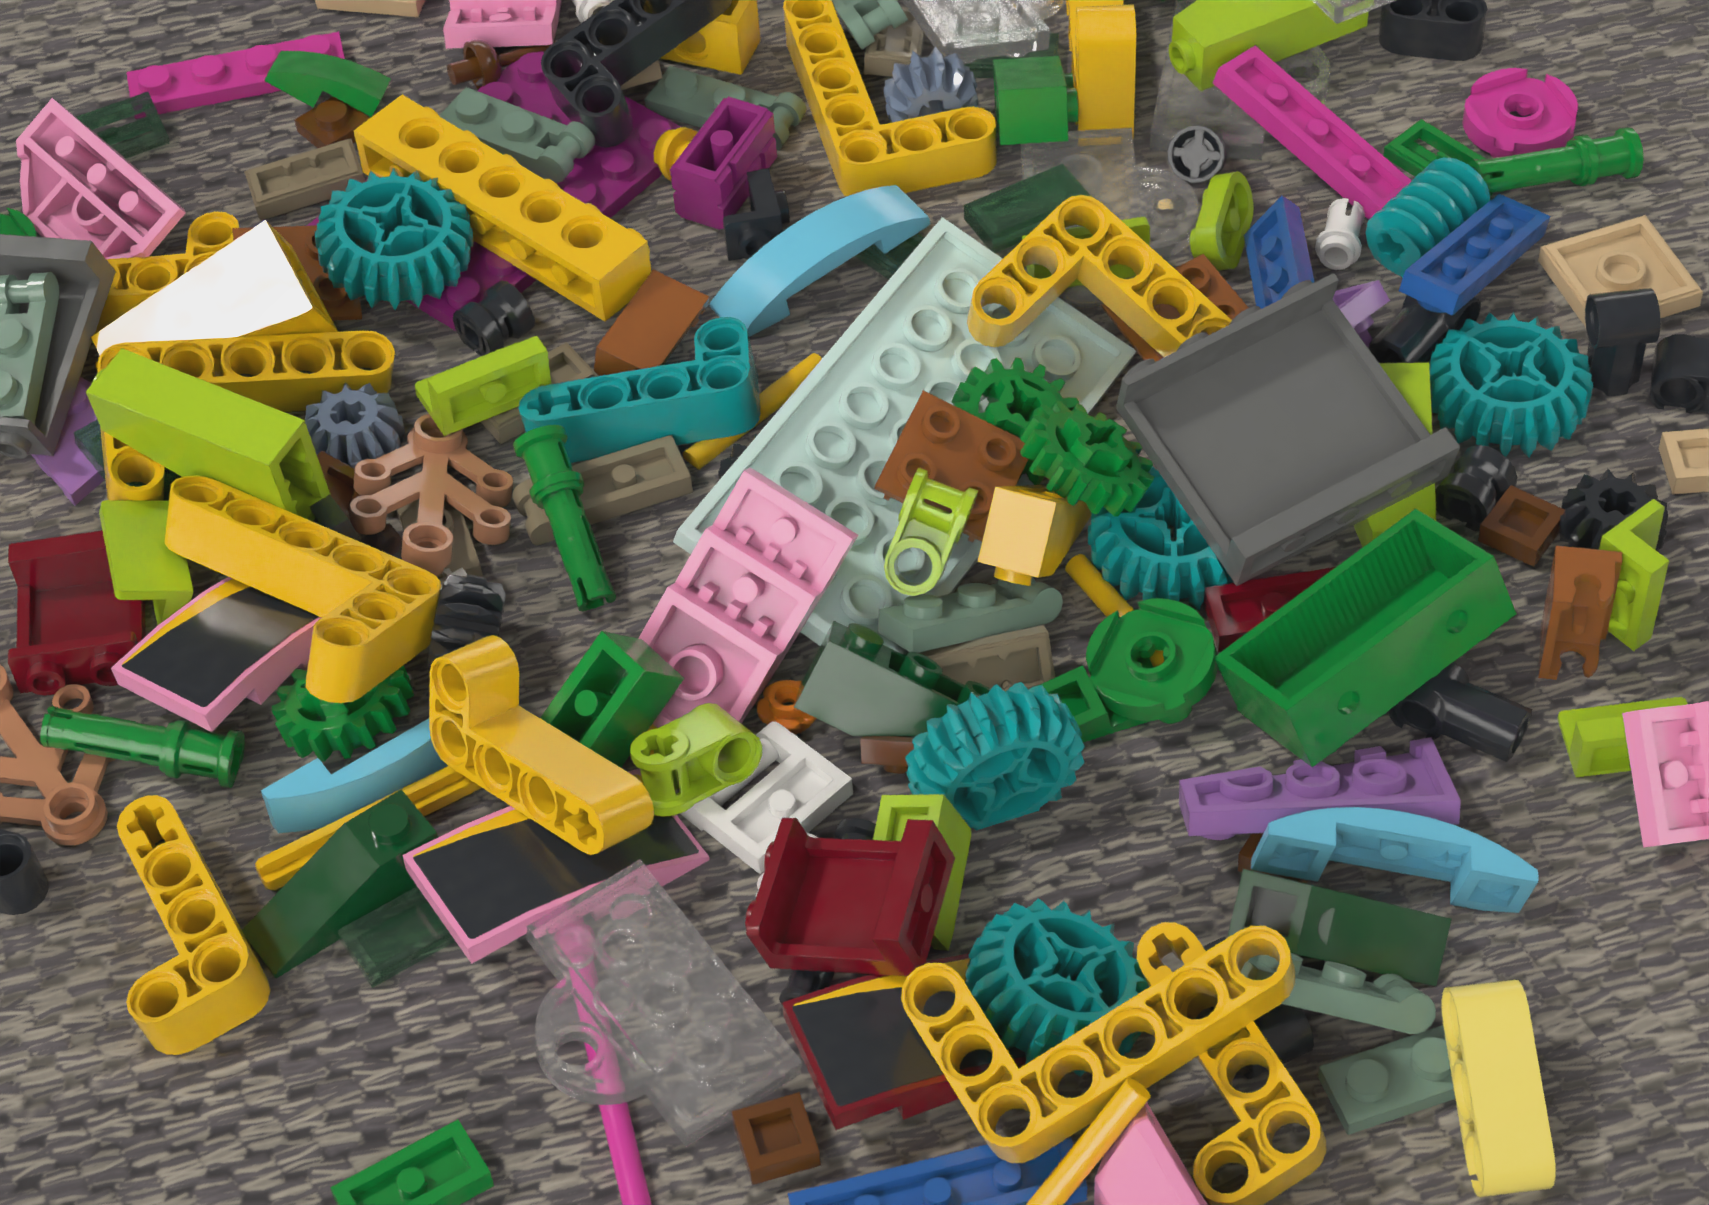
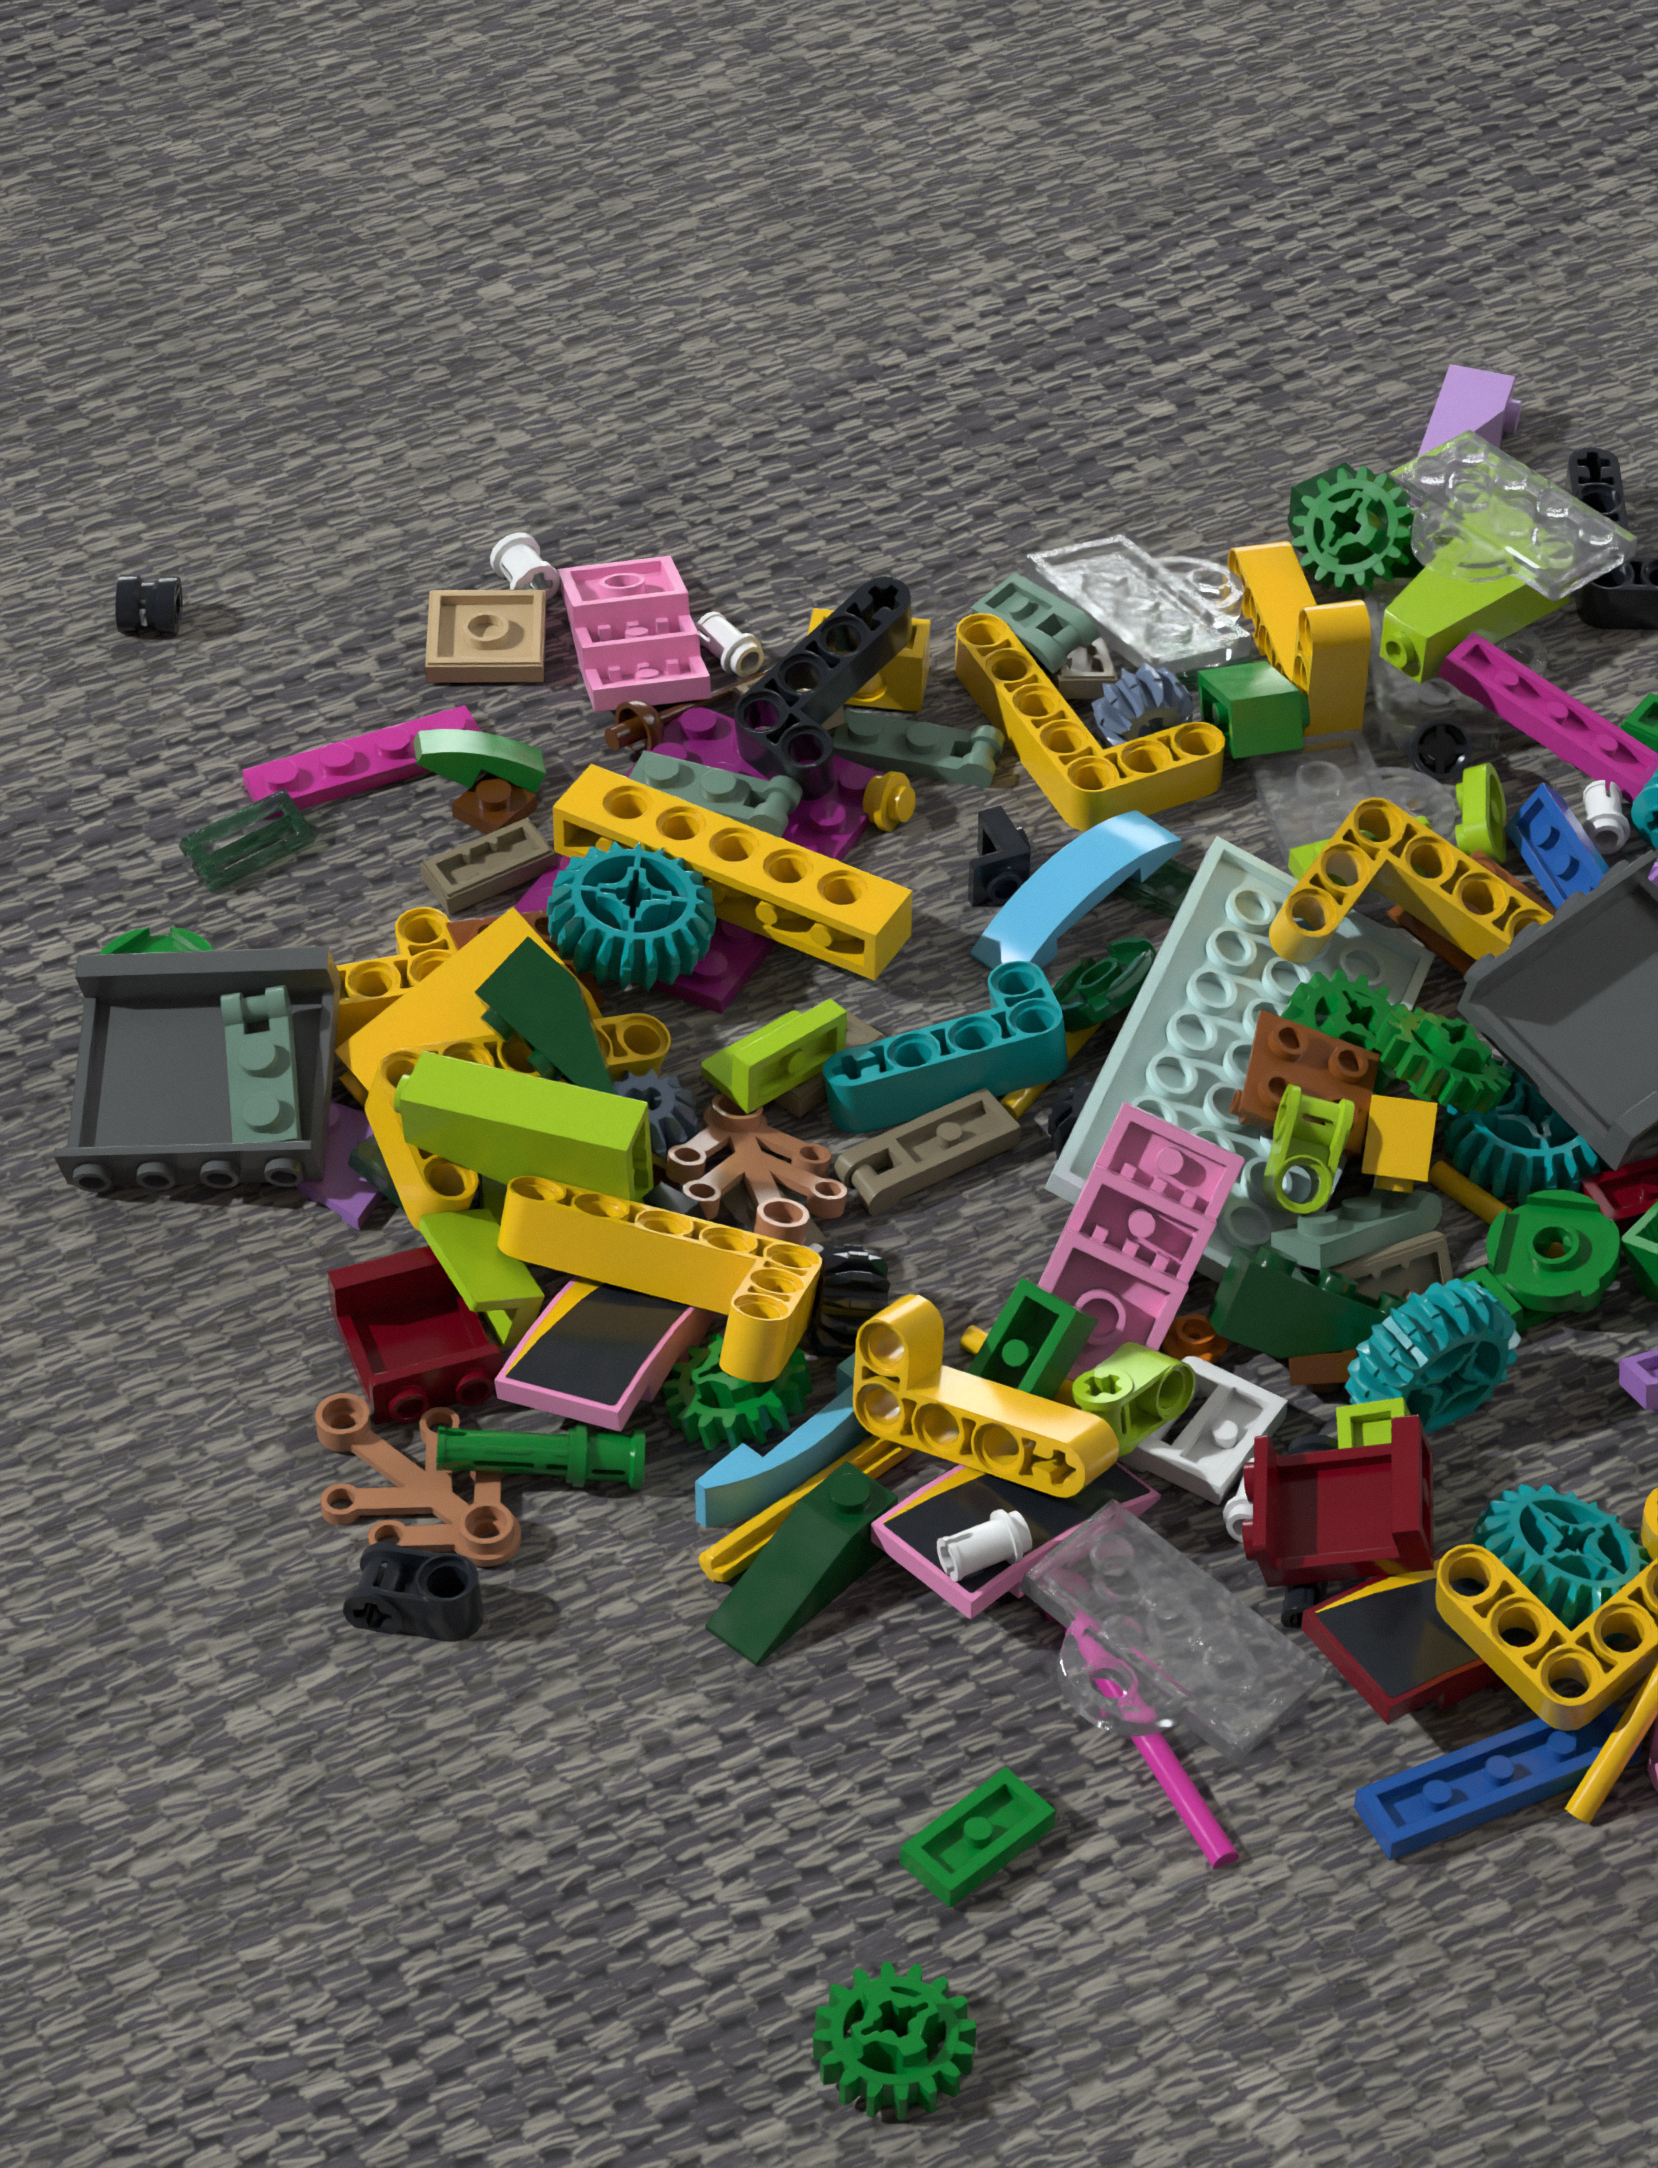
camera: 15 degrees left, 5 degrees down
(89, 191) = (260, 895): bright pink wedge -> none
(216, 974) = (649, 1601): yellow beam -> none
(271, 334) = (549, 1014): none -> dark green slope
(395, 937) = (872, 1607): clear green tile -> none
(491, 894) = (999, 1539): none -> white pin
(494, 319) = (746, 995): black wheel -> none
(558, 492) = (897, 1154): green pin -> none
(650, 326) = (927, 980): dark orange hinge -> none
(714, 165) = (946, 804): magenta brick -> none
(776, 1138) = (1323, 1744): reddish brown plate -> none
(802, 348) = (1101, 989): none -> dark green tile
(1018, 209) = (1284, 818): clear green tile -> none

